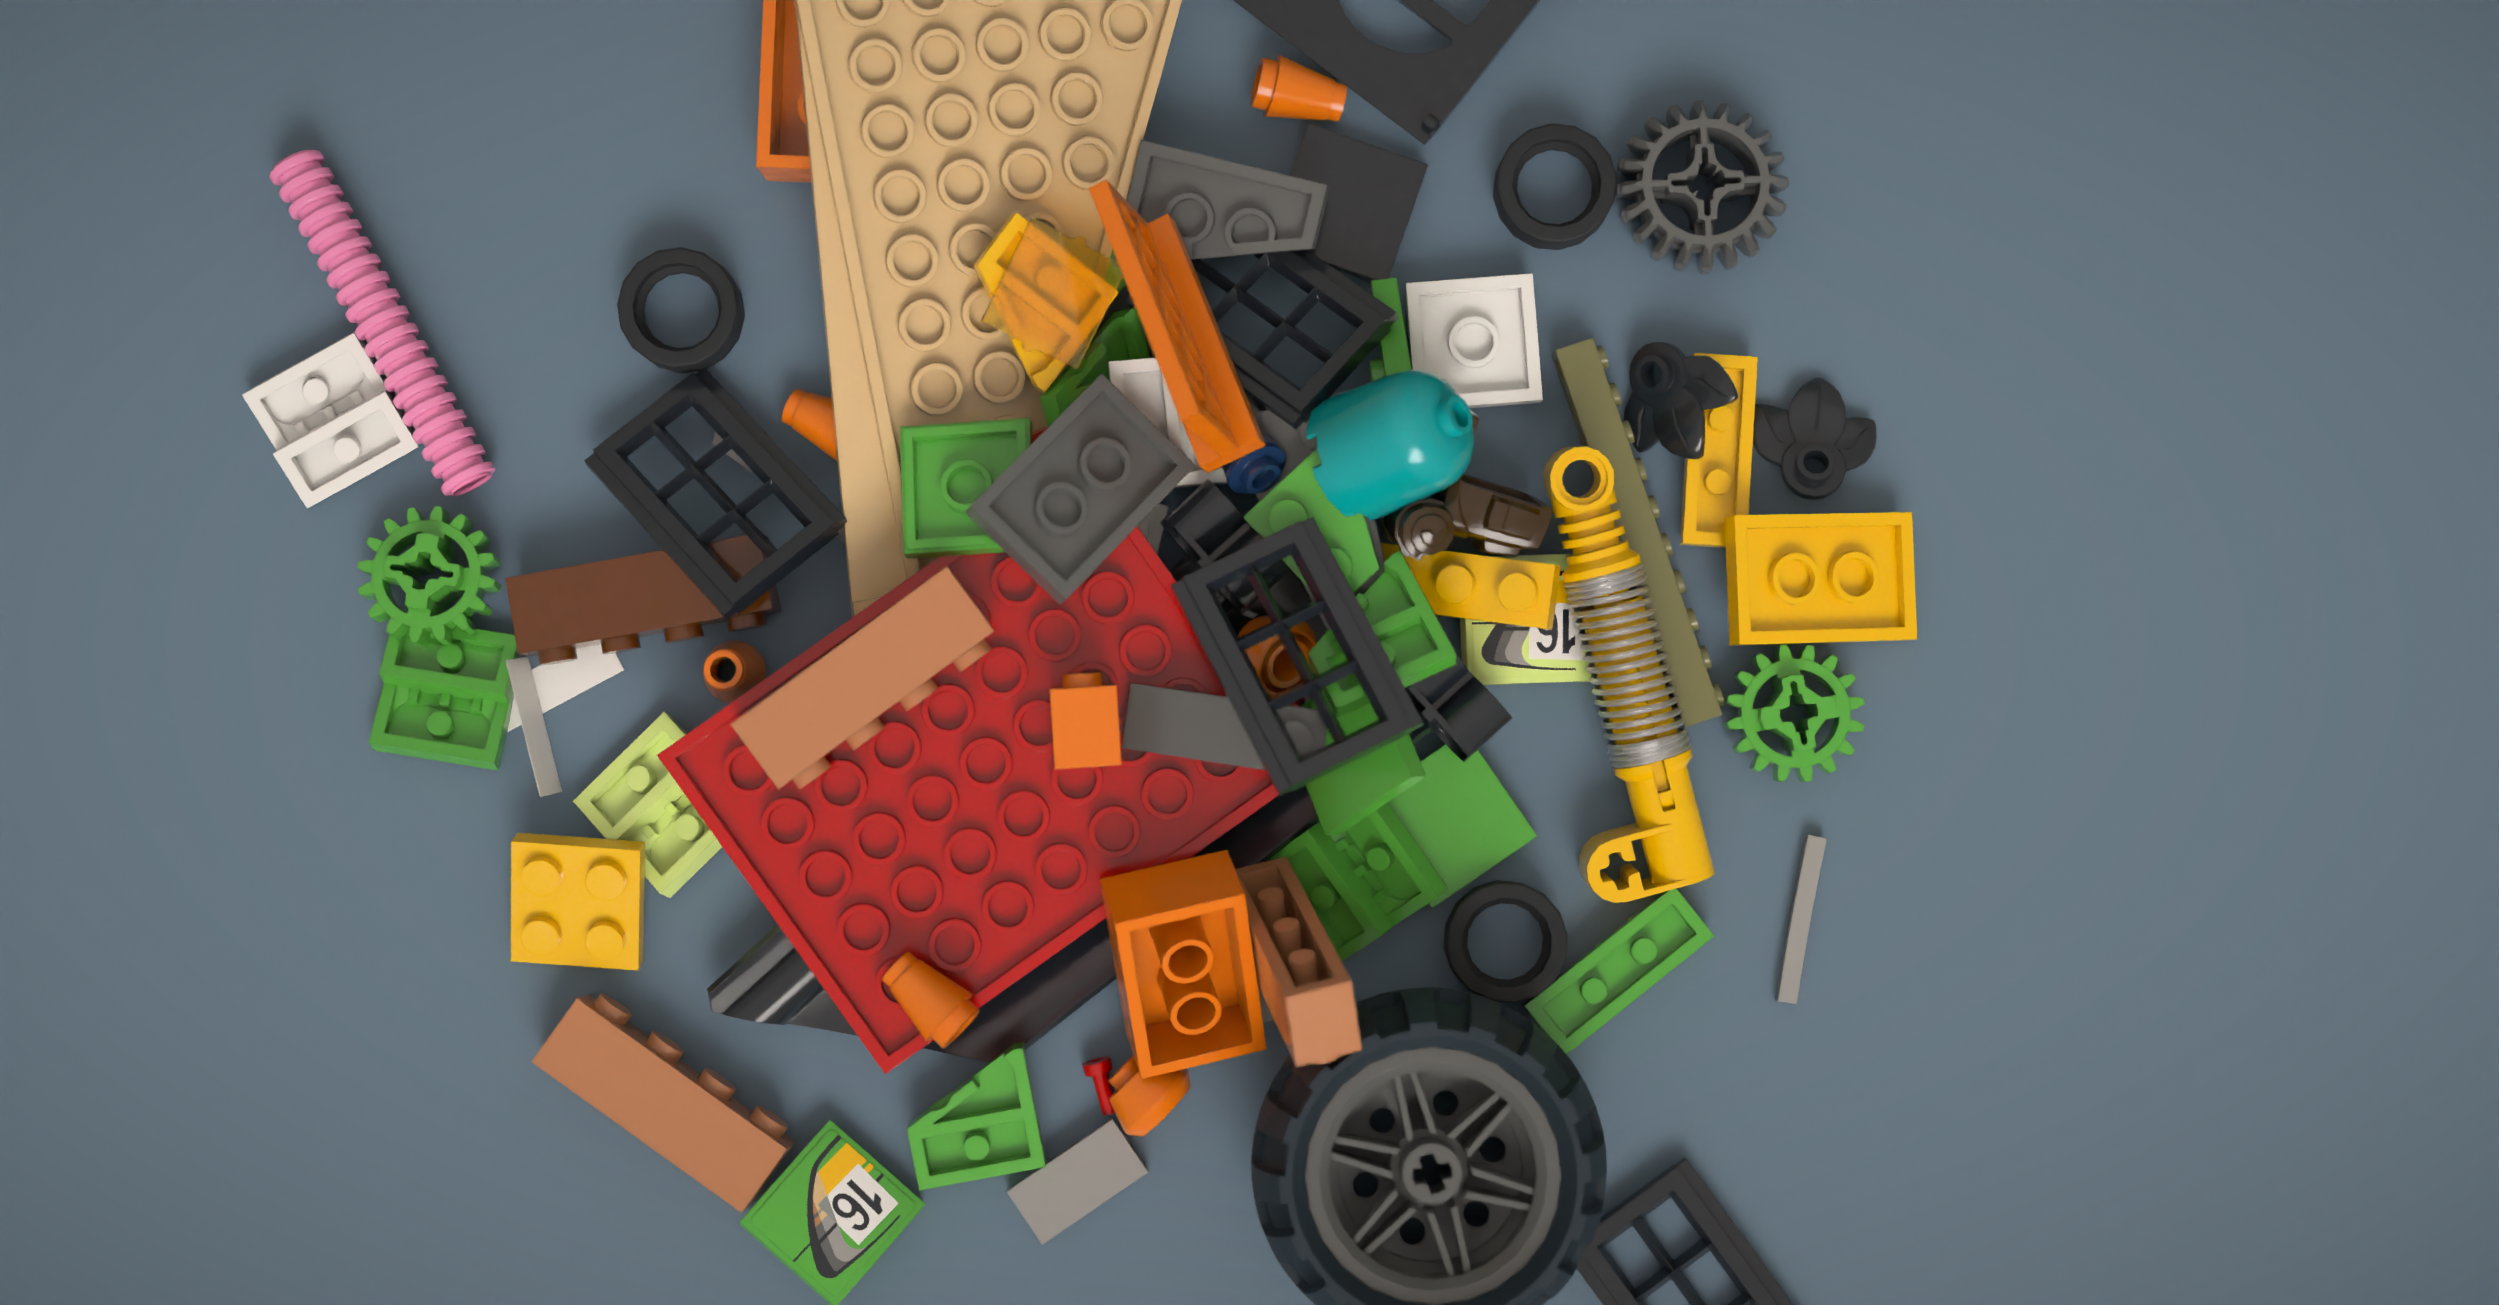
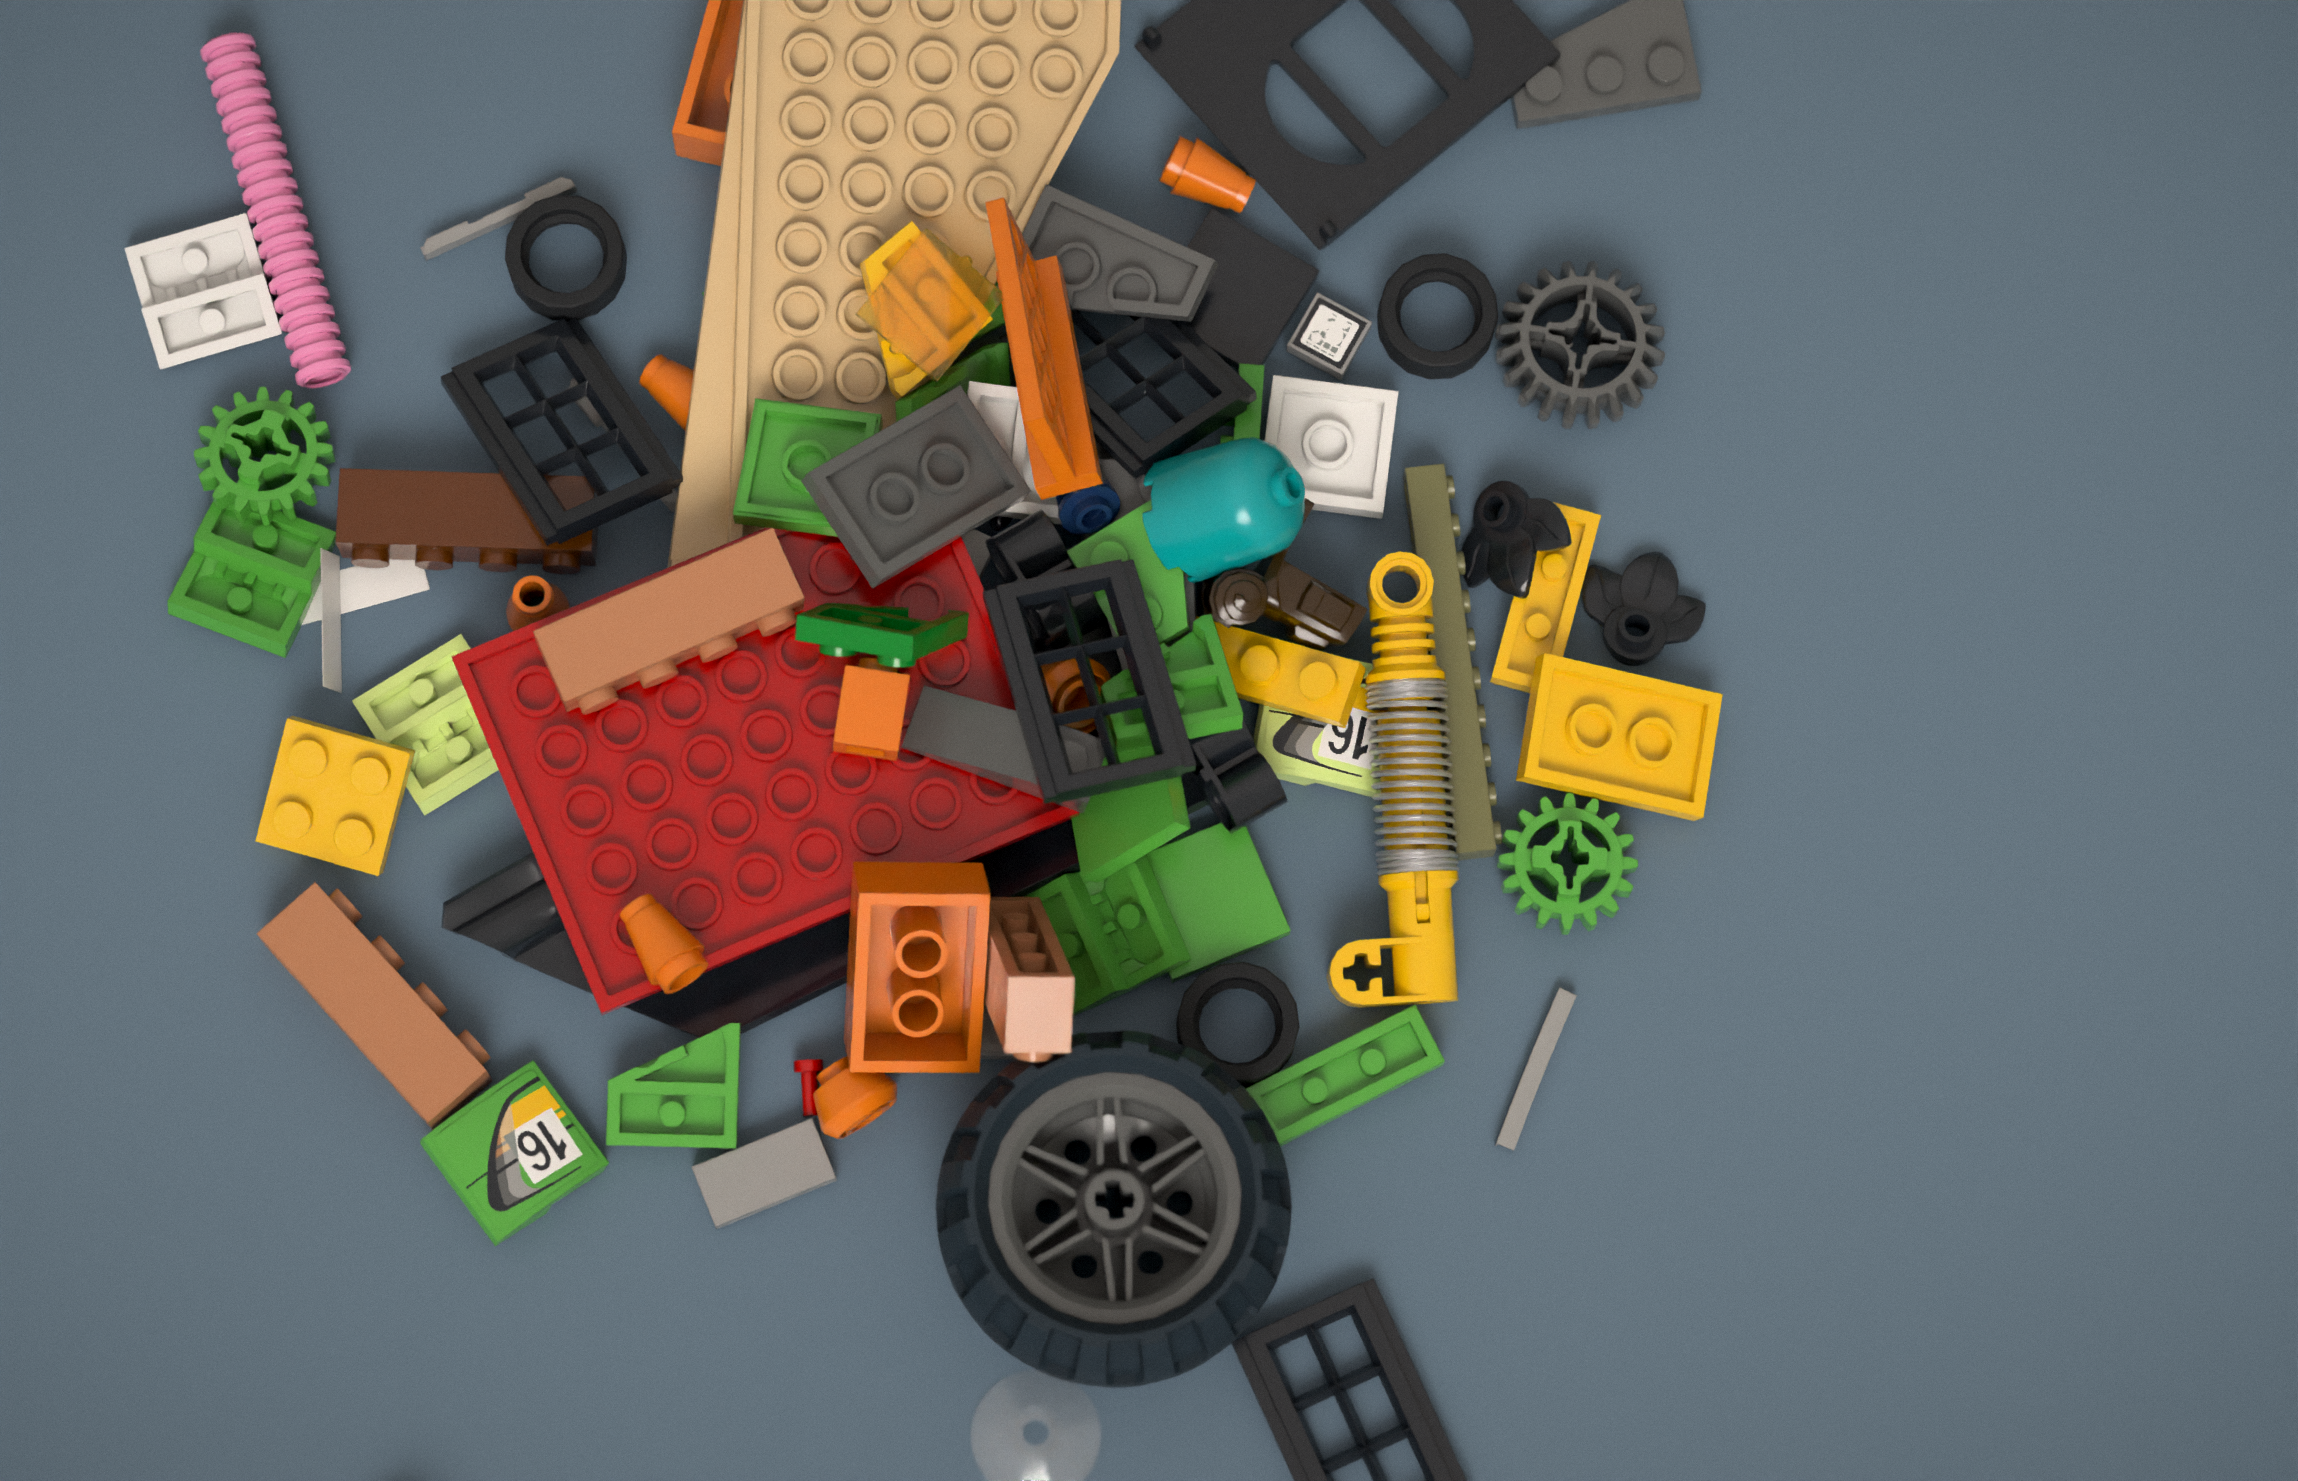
camera: 10 degrees right, 10 degrees down
(577, 303) = (466, 232): none -> light grey piece
(1075, 645) = (878, 630): none -> green wing
(1451, 229) = (1329, 336): none -> tile

